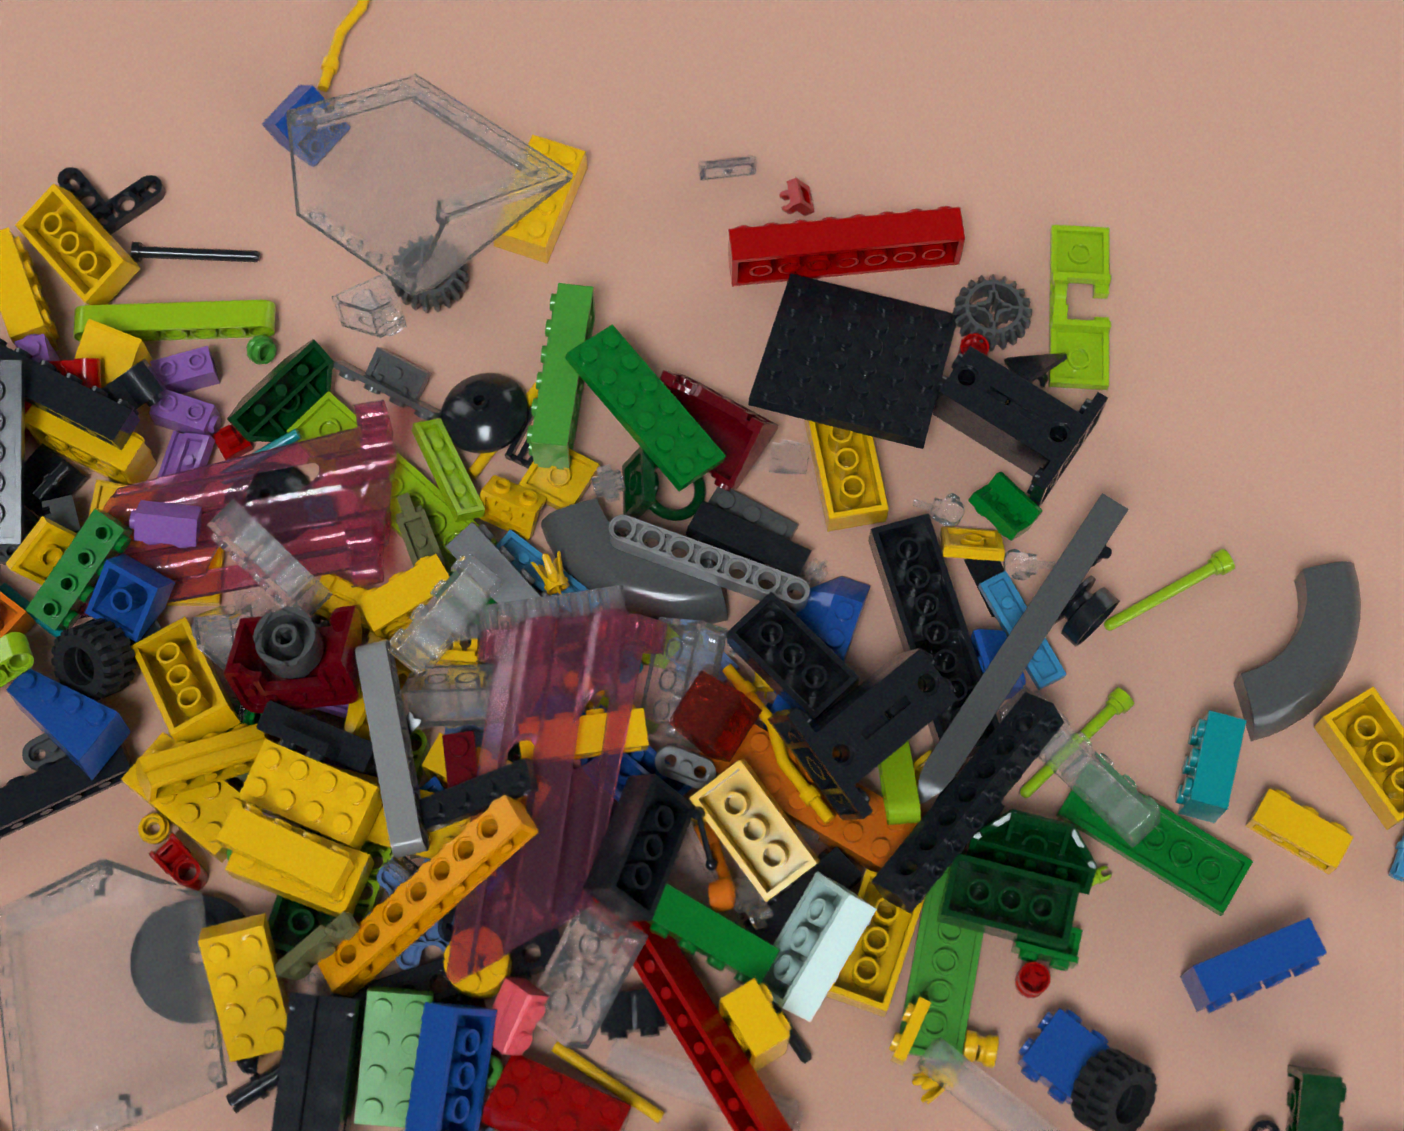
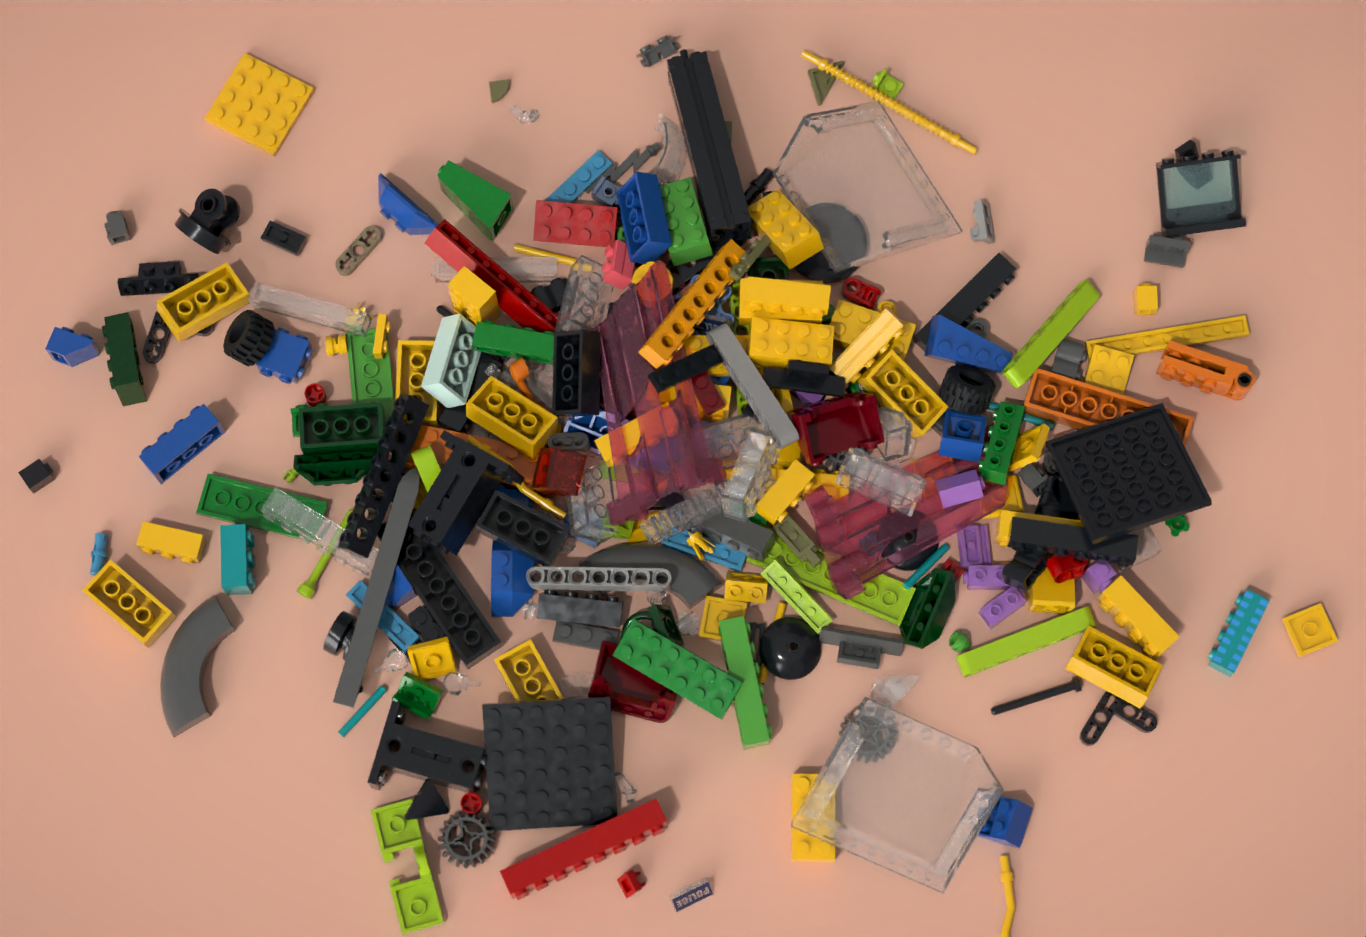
camera: 160 degrees right, 5 degrees up
(289, 642) = (853, 423): dark grey brick -> none
(698, 814) = (548, 409): black hinge -> none
(763, 312) = (626, 787): none -> clear bar
(969, 592) = (423, 624): none -> black brick
(1074, 523) = (362, 711): none -> teal bar
(1219, 563) = (263, 707): lime piece -> none

